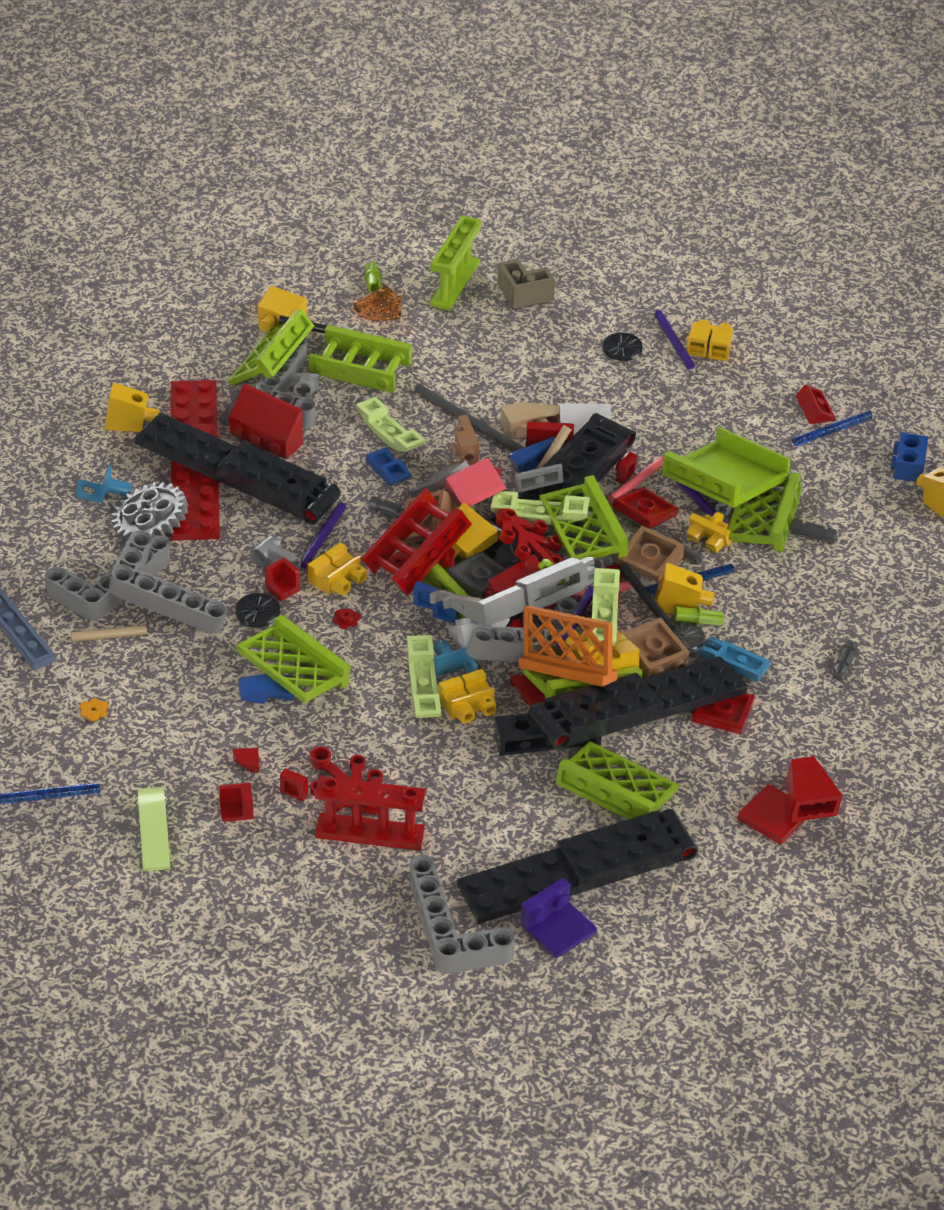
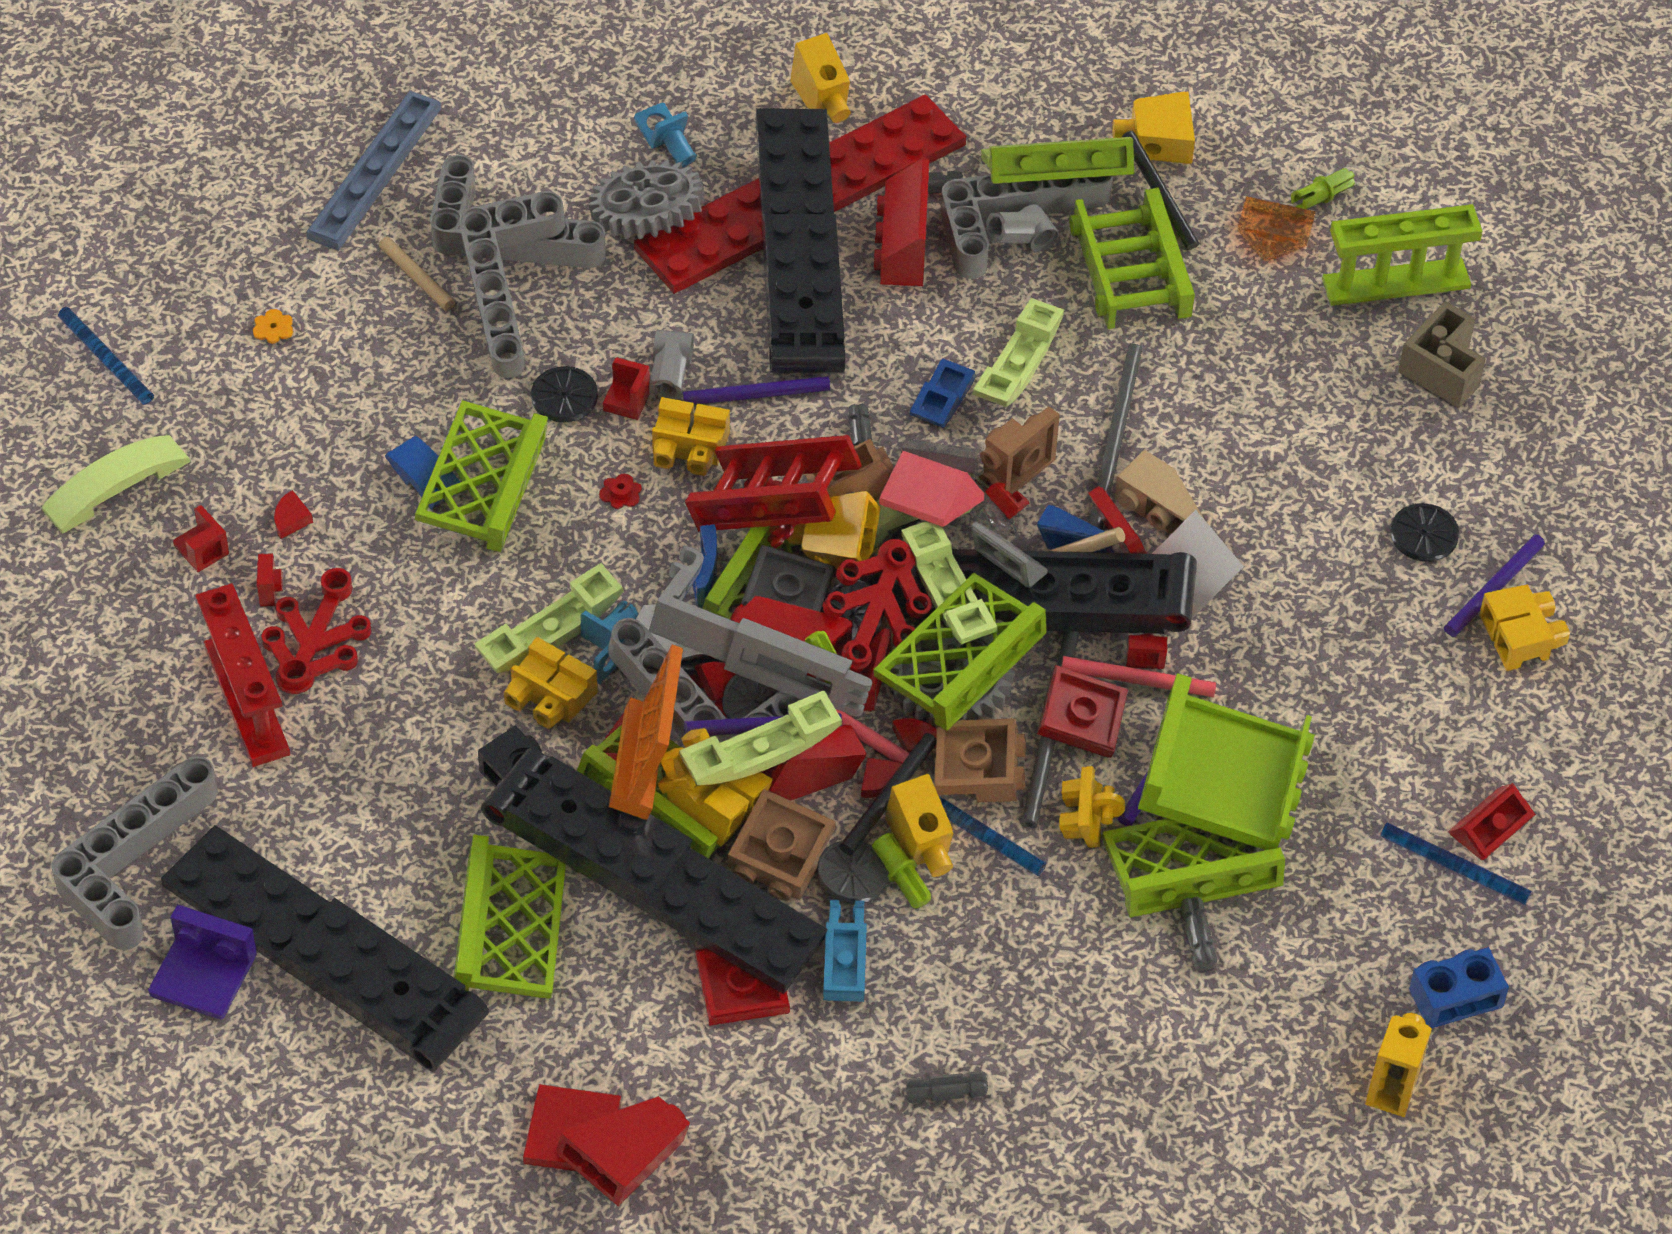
camera: 60 degrees right, 10 degrees up
(629, 600) = (877, 775): none -> red tile

